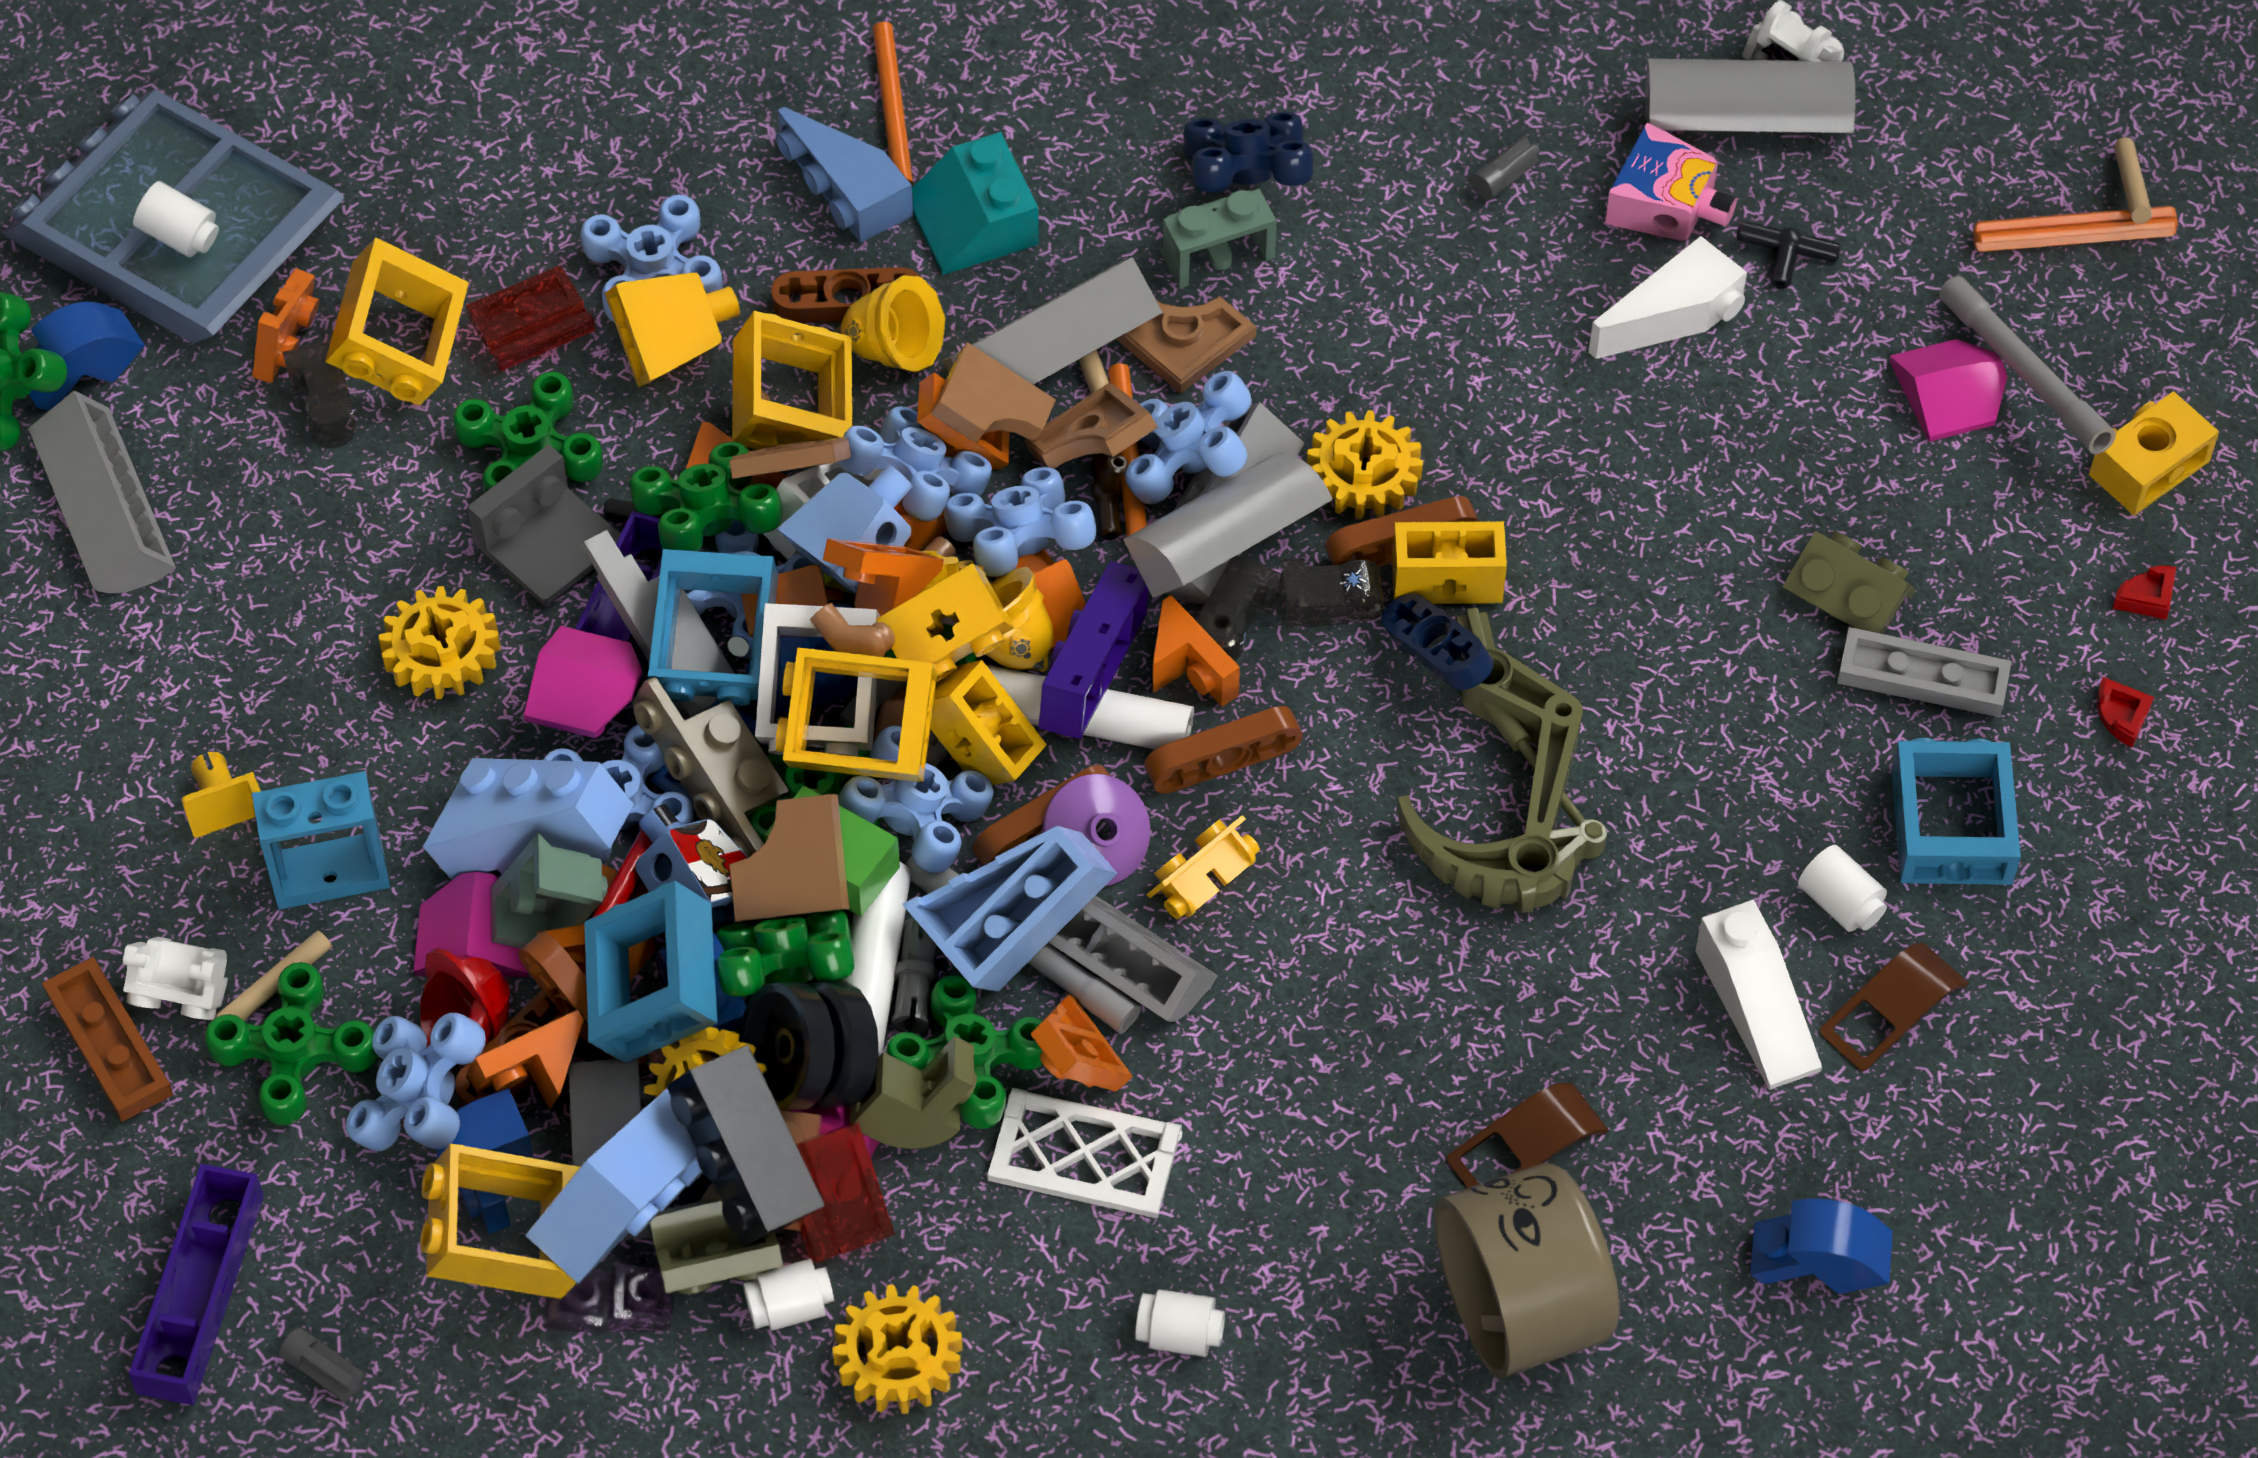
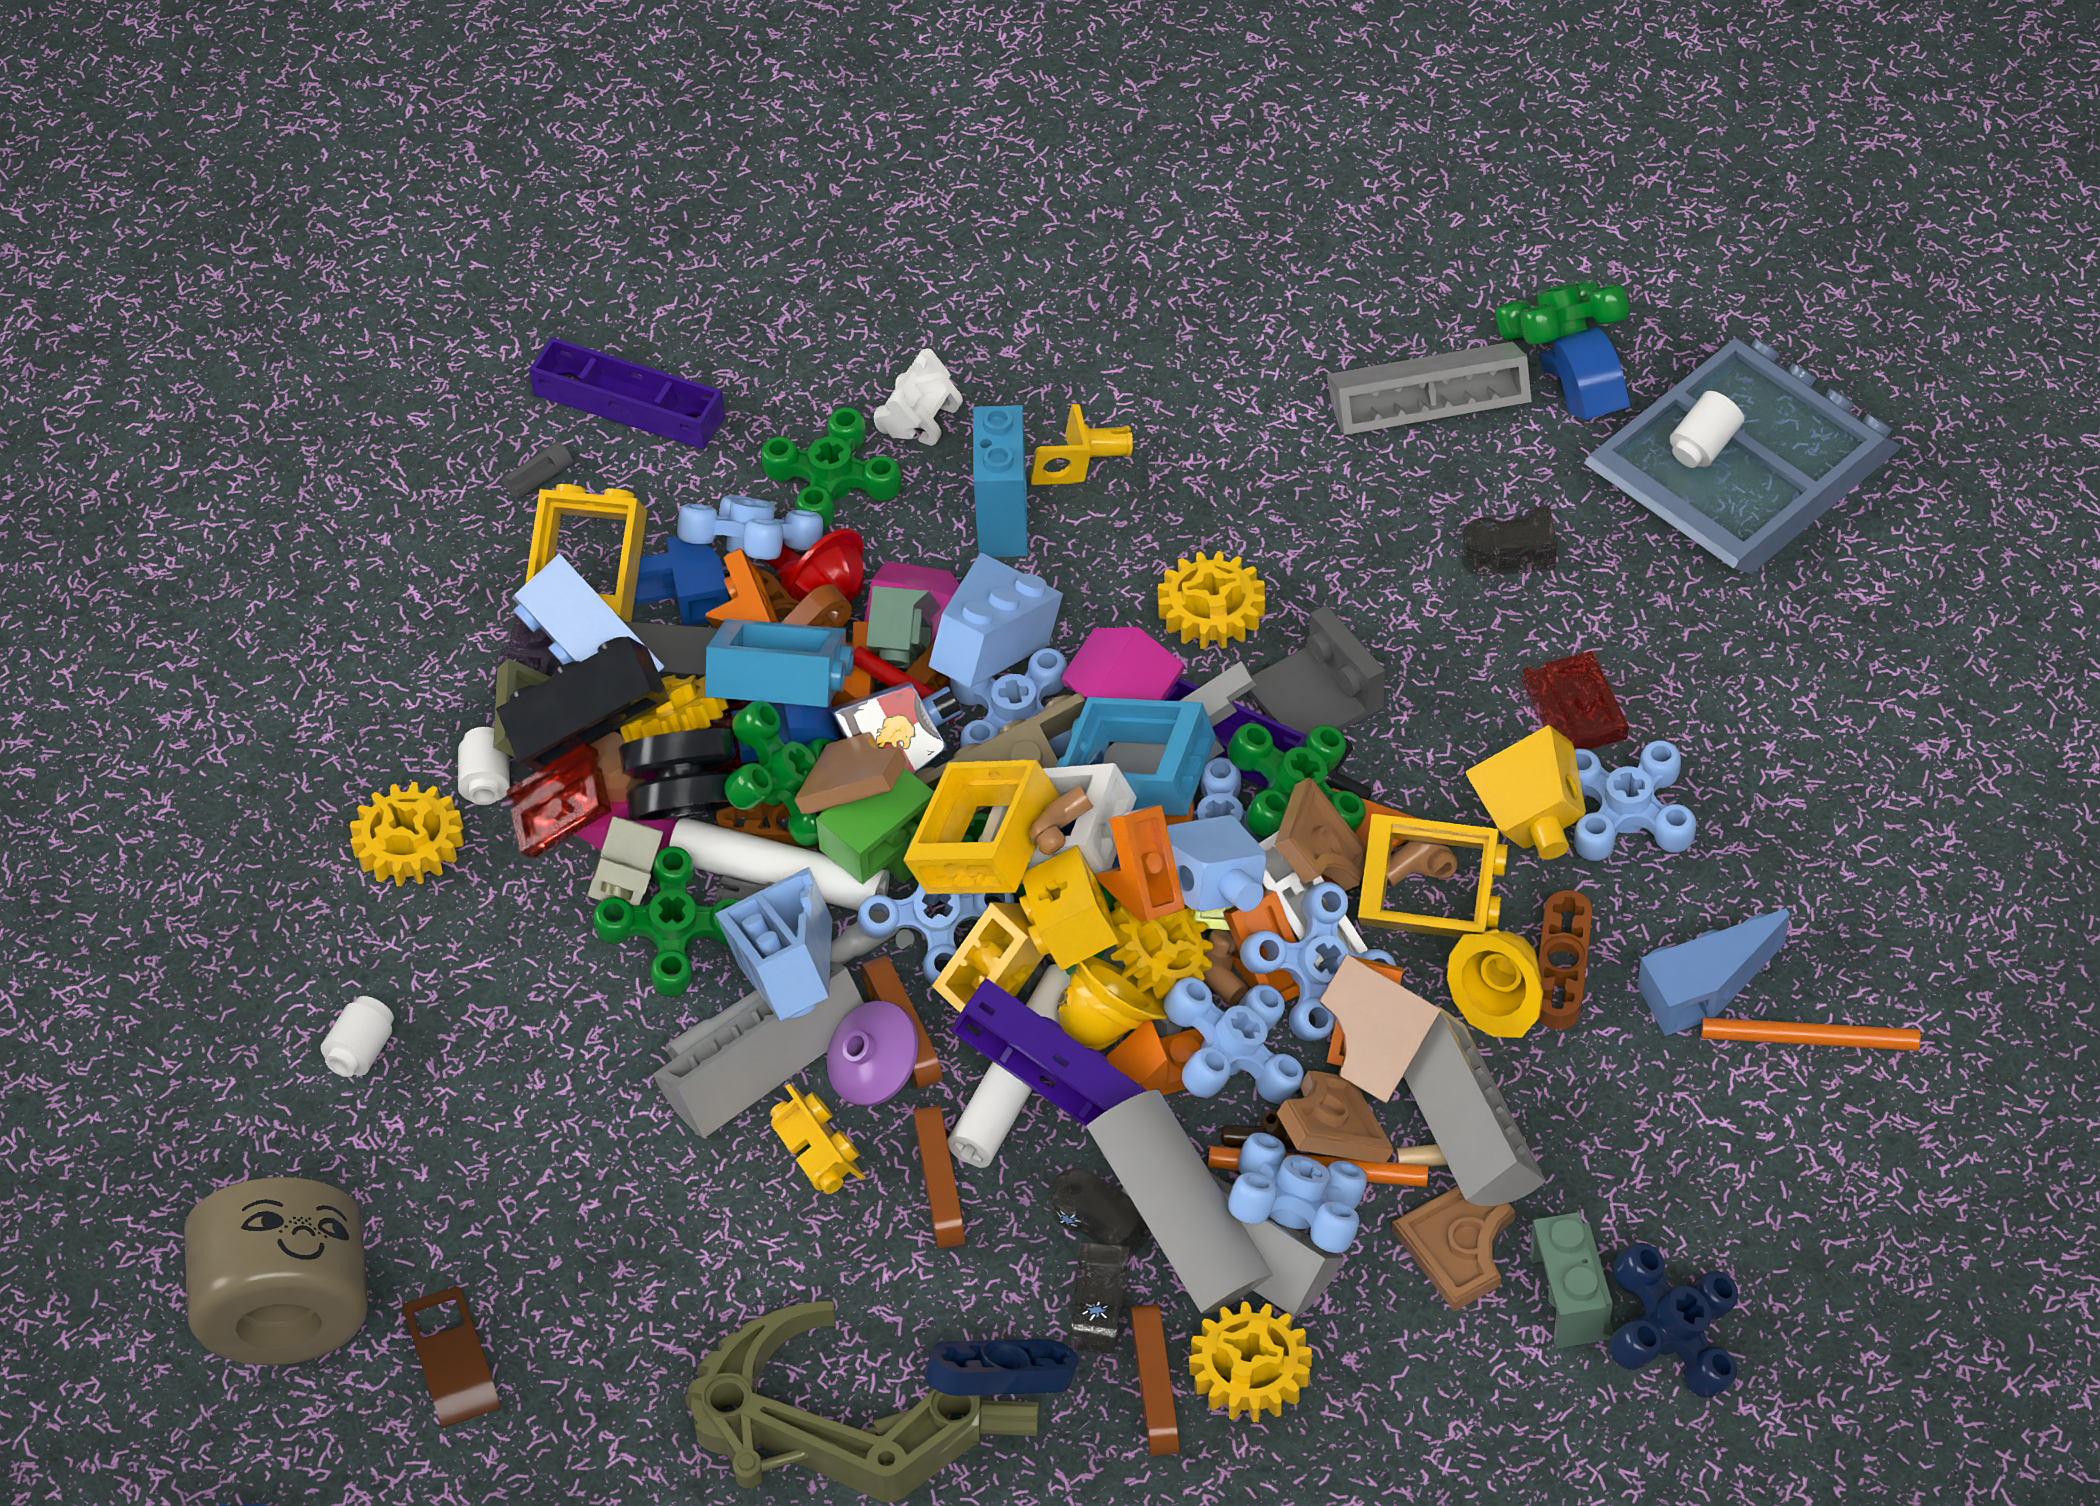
camera: 105 degrees right, 5 degrees down
(107, 1039) = (871, 358): dark orange plate -> none
(266, 986) = (910, 476): tan piece -> none
(278, 330) = (1591, 513): orange wing -> none
(411, 283) = (1614, 603): yellow window -> none
(528, 431) = (1428, 686): green gear -> none
(975, 205) = (1654, 1082): teal slope -> none
(1077, 1048) = (643, 993): orange wing -> none
(1102, 1192) = (523, 1055): white window -> none
(1188, 648) = (1059, 1149): orange slope -> none
(1450, 561) = (1097, 1401): yellow brick -> none

